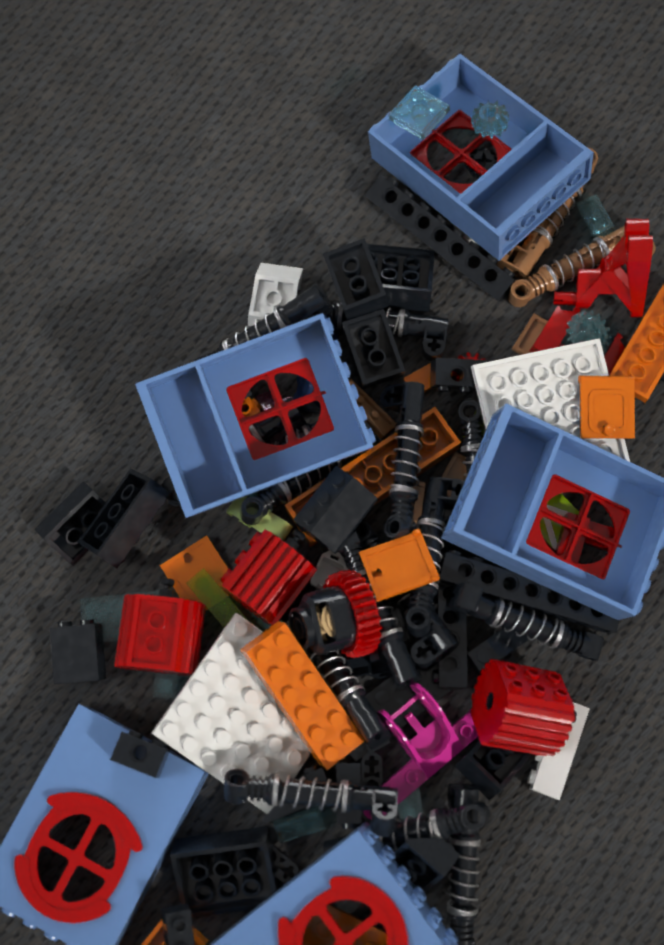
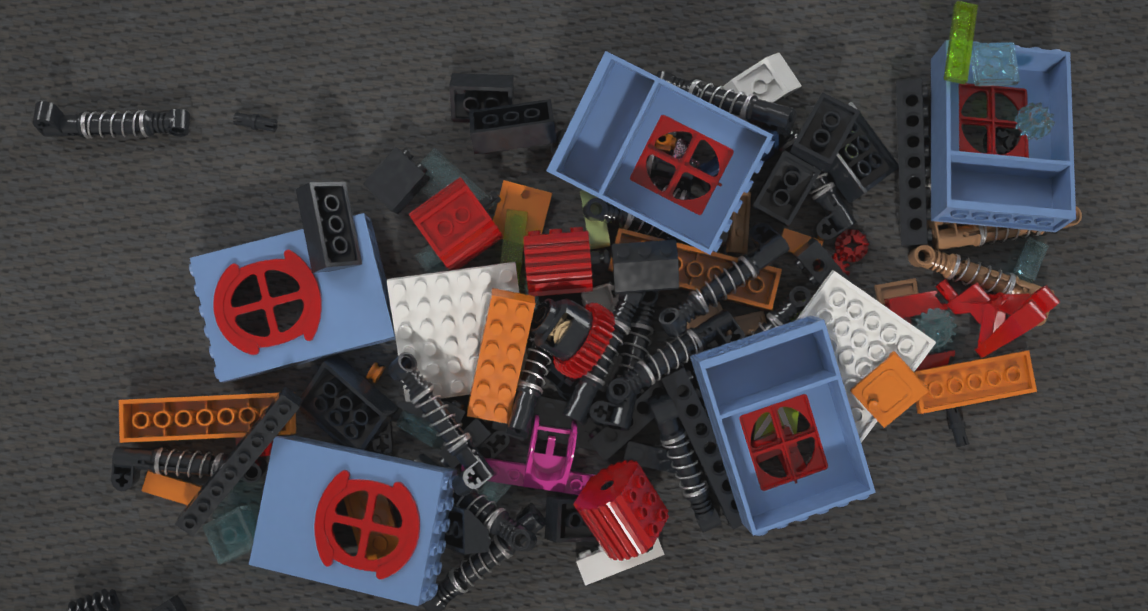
camera: 40 degrees right, 10 degrees up
(61, 743) = (328, 226): none -> black slope
(126, 753) = (358, 275): black brick -> none
(219, 820) = (375, 372): none -> orange bush
(380, 122) = (960, 42): none -> clear neon green plate
(403, 565) = (647, 346): orange container -> none
(453, 339) = (845, 238): none -> red gear

